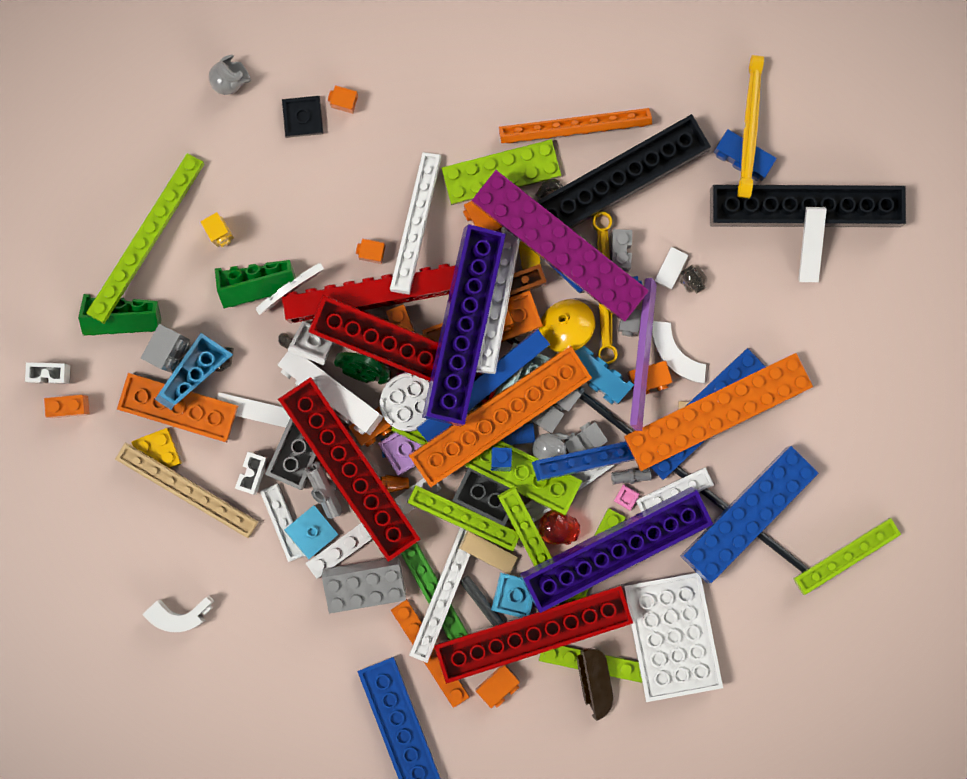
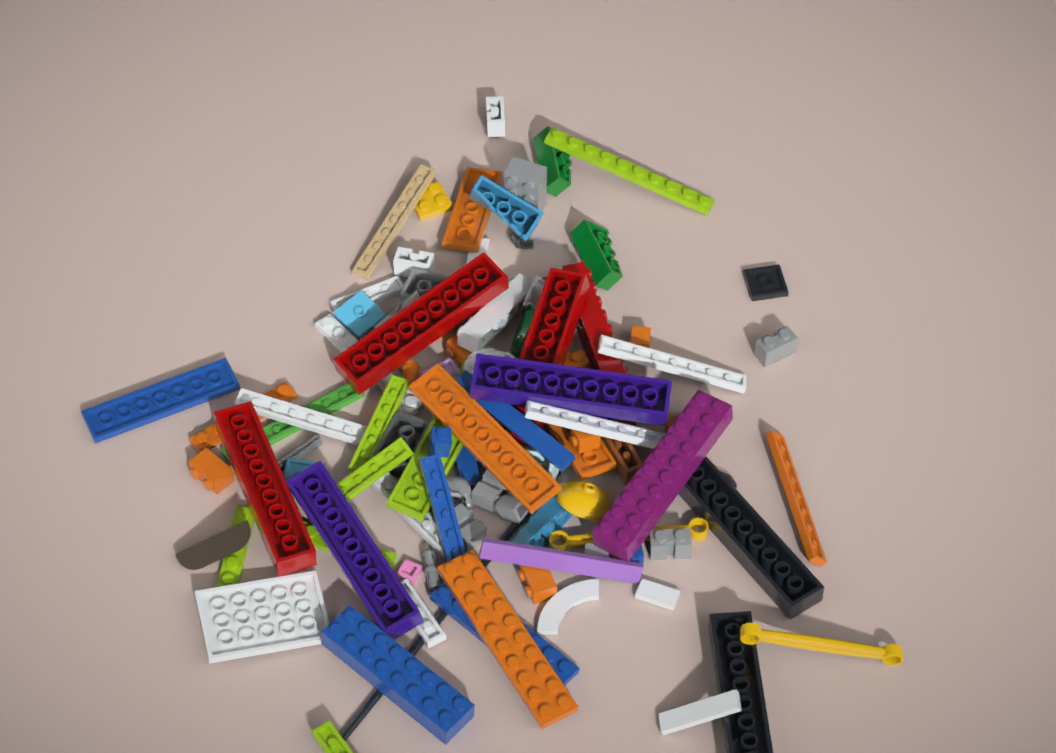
camera: 85 degrees right, 35 degrees down
(66, 406) = (466, 133): orange brick -> none
(169, 621) = (272, 216): white arch -> none
(217, 230) = (643, 220): yellow brick -> none
(228, 76) = (794, 220): light grey hair -> none
(289, 287) = (600, 278): white tile -> none
(343, 99) = (787, 309): orange brick -> none
(363, 585) = (310, 354): light grey brick -> none
(389, 110) = (772, 349): none -> light grey brick
(488, 552) = (345, 451): tan tile -> none
(519, 165) = (743, 451): lime plate -> none
(558, 528) = (373, 504): clear red hair -> none
(693, 279) = (648, 612): clear smoke head -> none
(731, 150) = (786, 659): blue brick -> none

